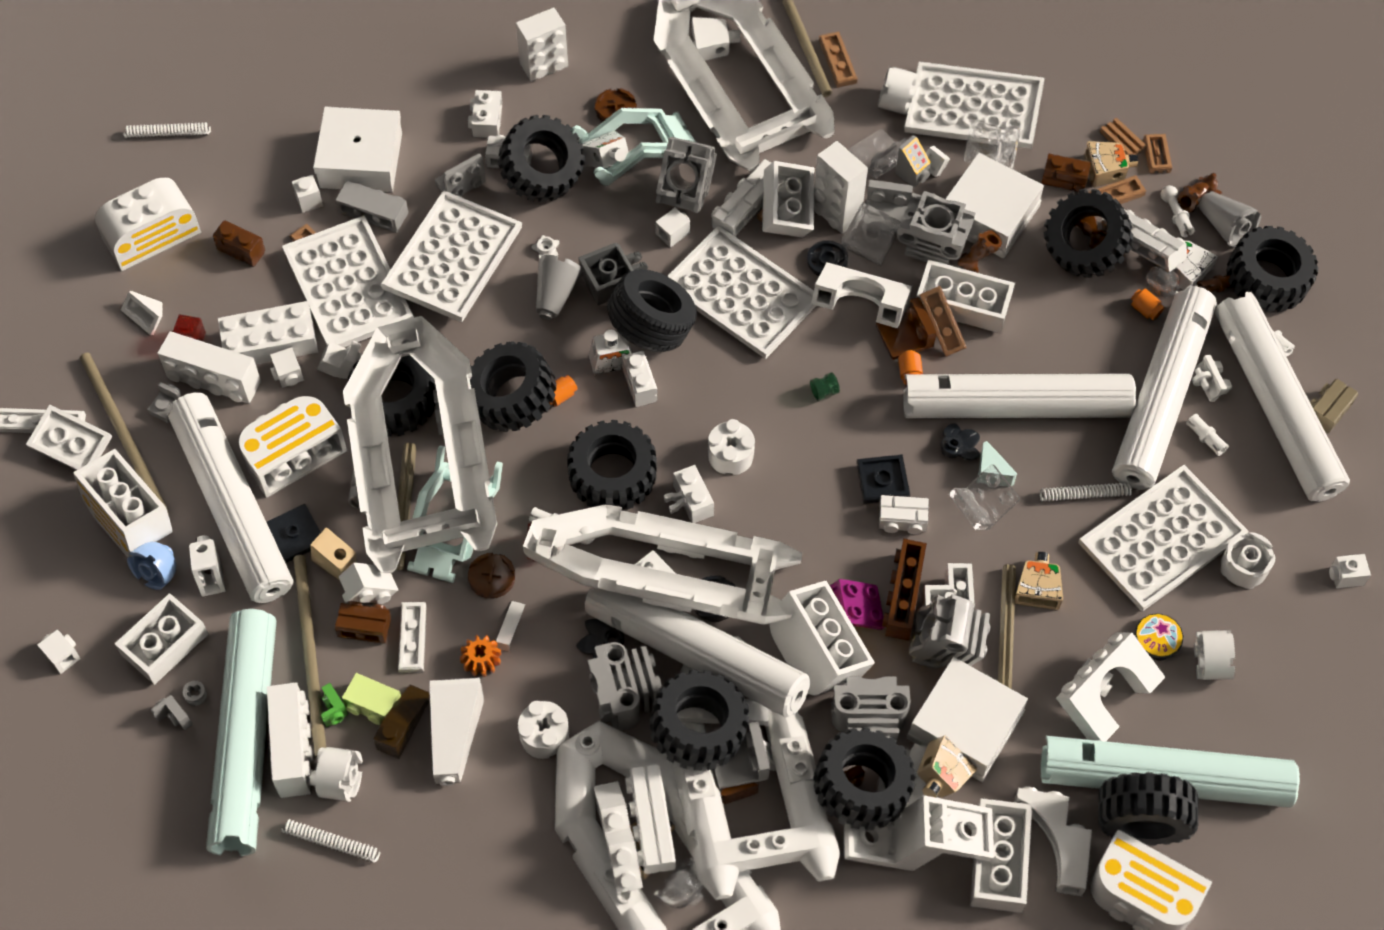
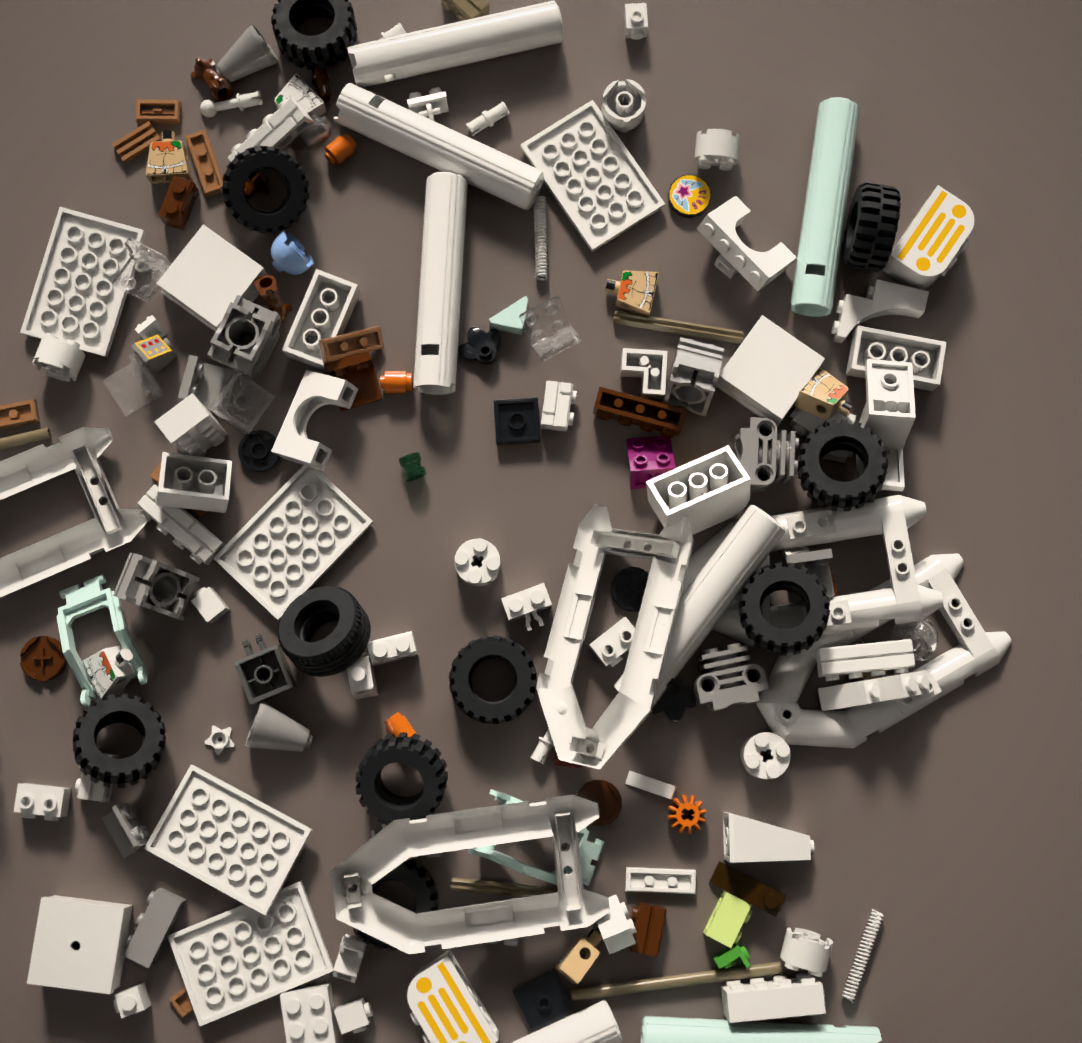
camera: 90 degrees left, 20 degrees up
(1029, 266) = (289, 255): none -> light blue cylinder

